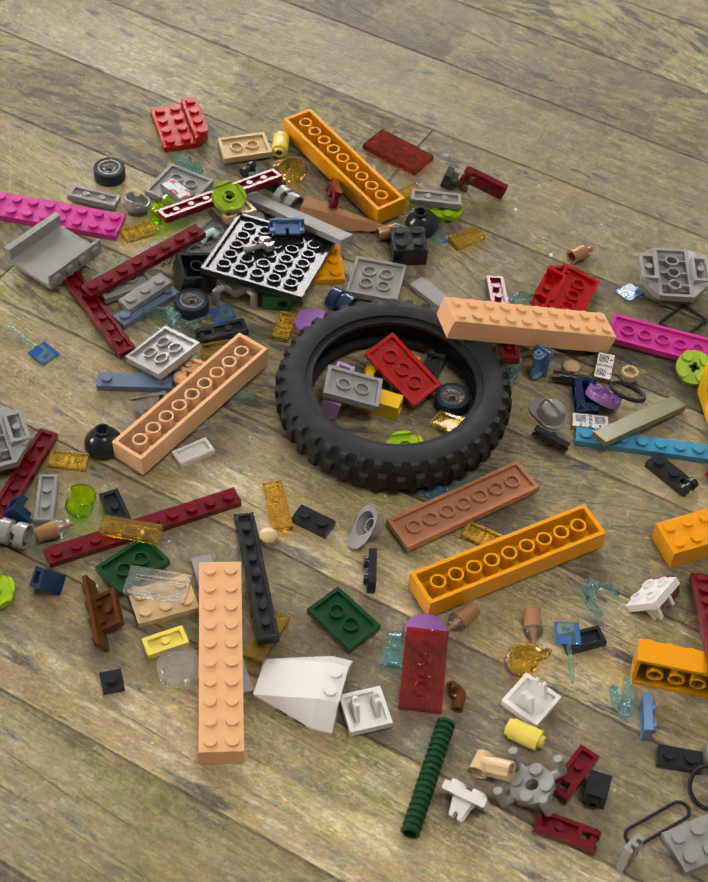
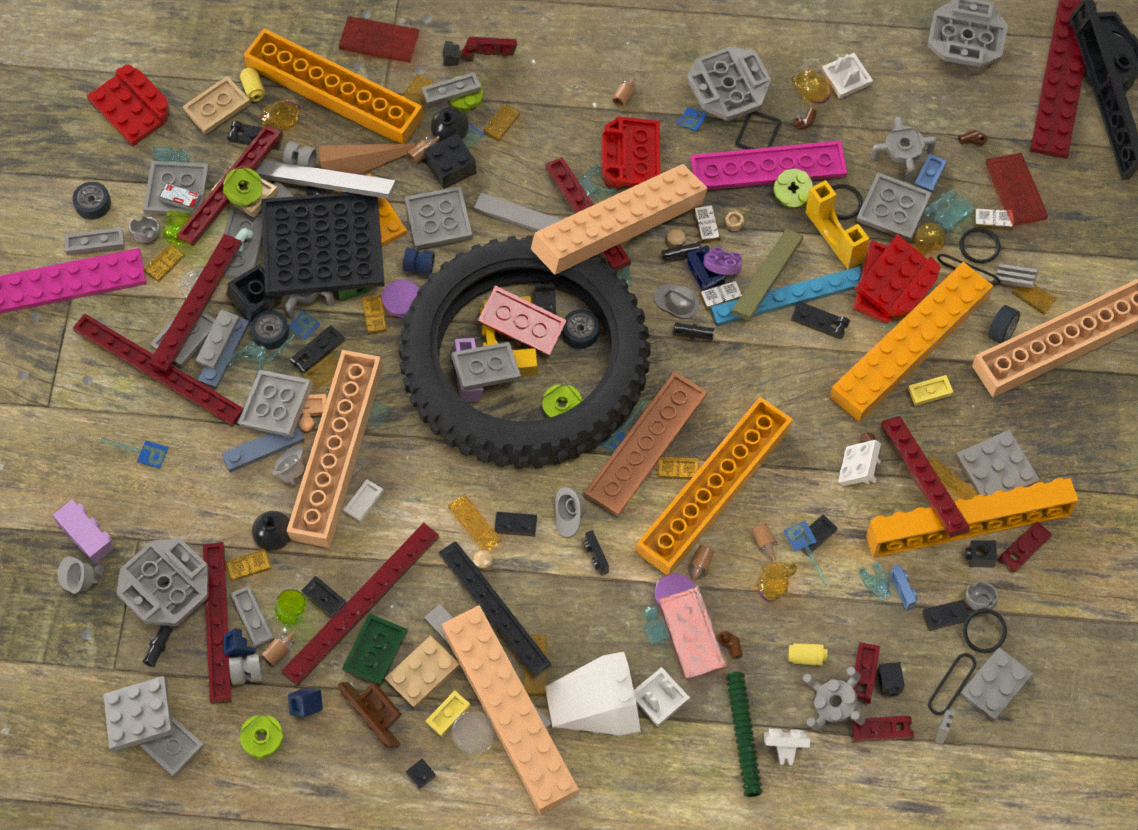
camera: 20 degrees left, 15 degrees up
(50, 251) = (95, 333): light grey panel -> none
(130, 529) = (354, 615): clear yellow tile -> none
(157, 584) = (411, 661): clear piece -> none
(264, 242) = (307, 227): light grey bar -> none
(279, 225) = (315, 201): medium blue hinge -> none
(333, 192) = (344, 128): dark red plate -> none
(343, 619) = (595, 614): dark green plate -> none
(445, 421) = (591, 357): clear yellow tile -> none
(485, 765) = (788, 700): tan piece -> none
(531, 700) = (797, 618): white plate -> none
(540, 363) = (646, 250): medium blue hinge -> none
(588, 591) = (799, 482): clear light blue helmet -> none
(629, 386) = (745, 235): black tyre -> none

